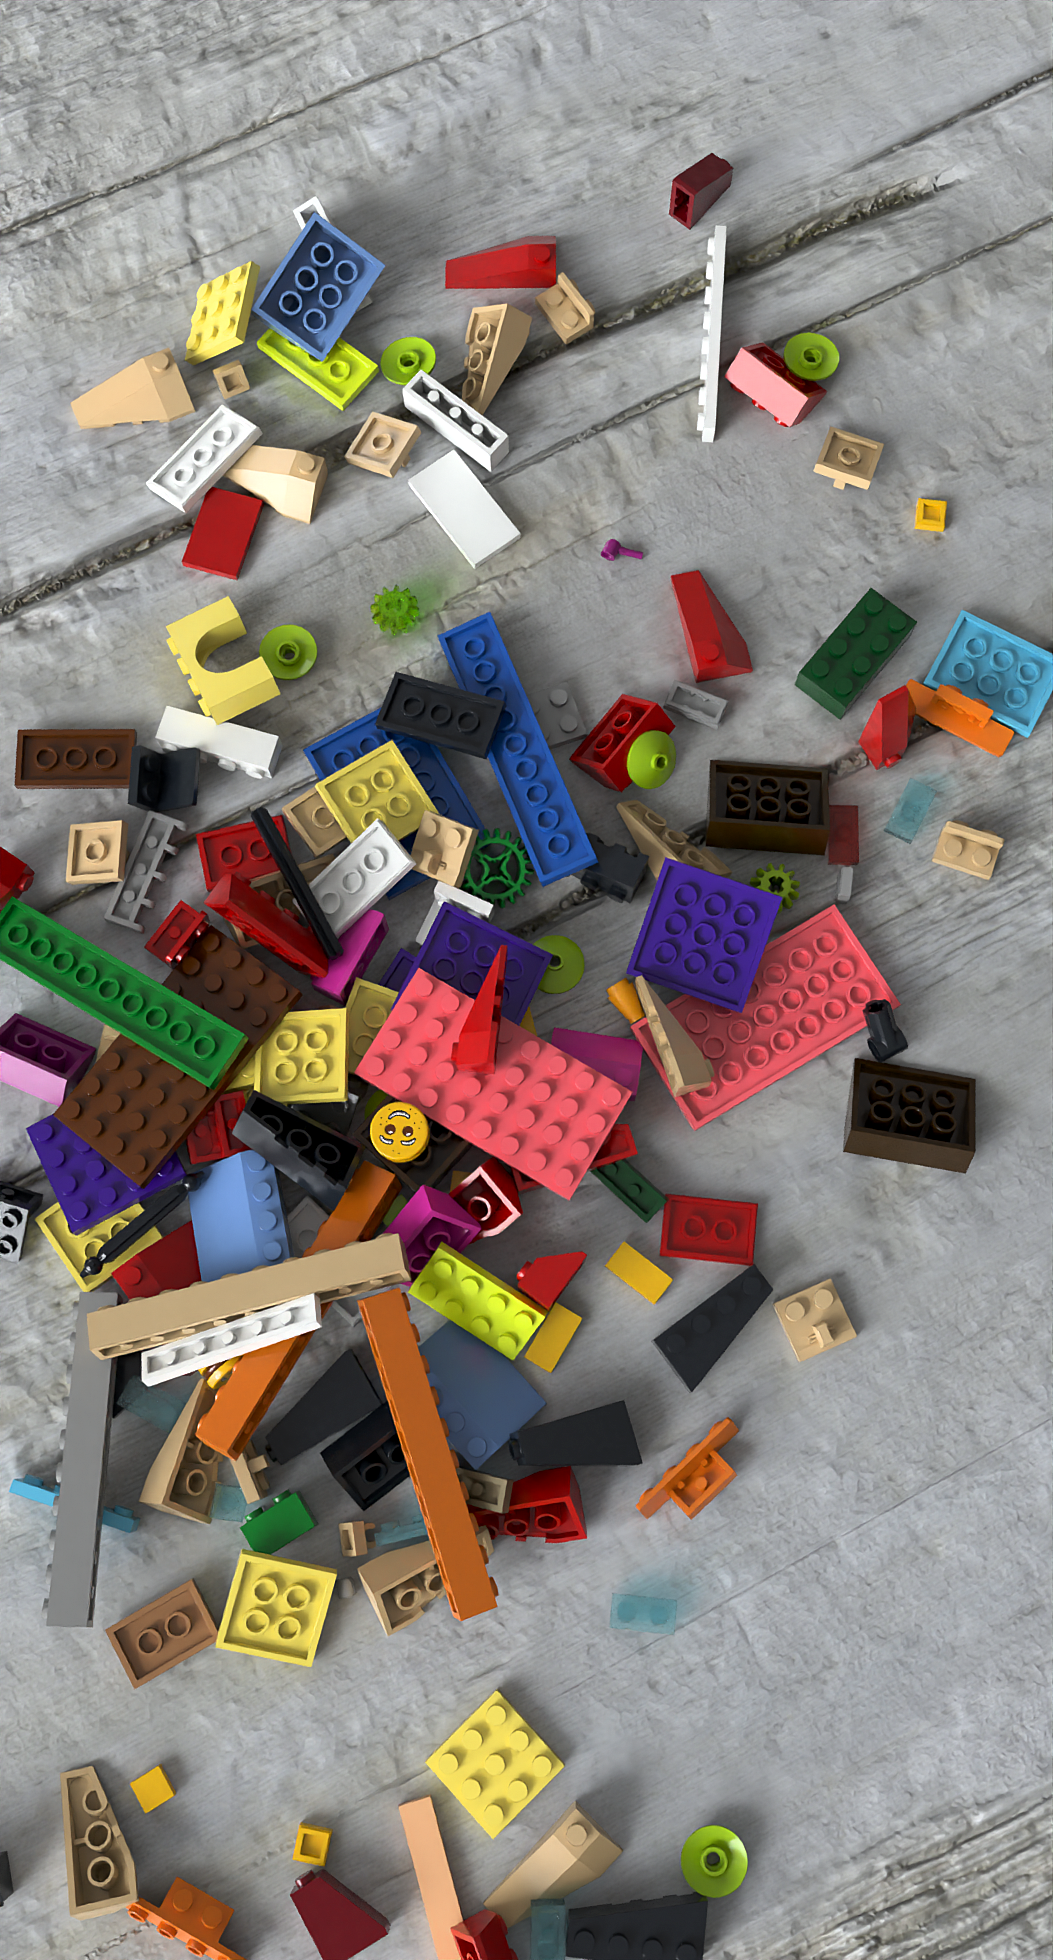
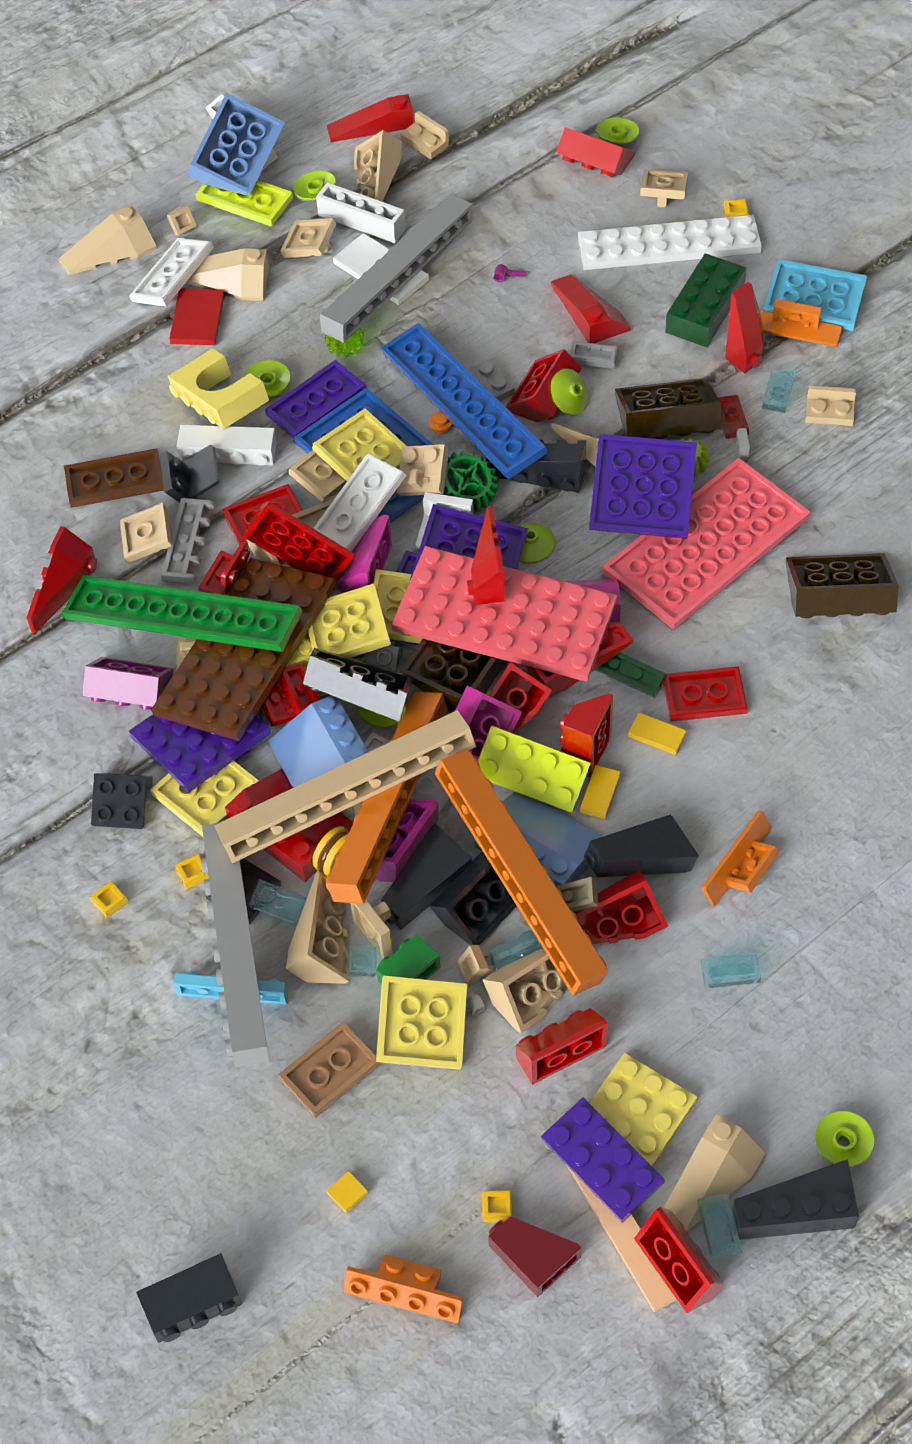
camera: 10 degrees left, 20 degrees down
(59, 1333) = (191, 871): none -> yellow tile
(97, 1855) = (313, 1247): tan wedge -> none
(142, 1224) = (241, 771): black wheel -> none
(222, 313) = (166, 177): light yellow plate -> none
(231, 1339) = (338, 817): white plate -> none
(297, 883) = (313, 513): black axle -> none
(318, 1356) = (412, 829): none -> magenta slope
(338, 696) = (314, 398): none -> dark purple plate
(400, 1132) = (439, 657): yellow head -> none
(426, 1668) = (562, 1044): none -> red slope
(438, 1826) = (602, 1159): none -> dark purple plate
(441, 715) = (398, 389): black plate -> none
(480, 521) = (395, 268): none -> light grey brick
(482, 767) = (440, 423): none -> orange plate
(626, 1000) = (592, 550): light orange cone -> none
(679, 1054) = (642, 567): tan wedge -> none
(699, 189) = (504, 49): dark red slope -> none
(707, 1331) = (725, 754): black wedge -> none
(711, 344) = (540, 136): white plate -> none
(814, 1320) = (808, 738): tan hinge -> none
(834, 547) = (668, 242): none -> white plate
(885, 1036) = (805, 534): black piece -> none

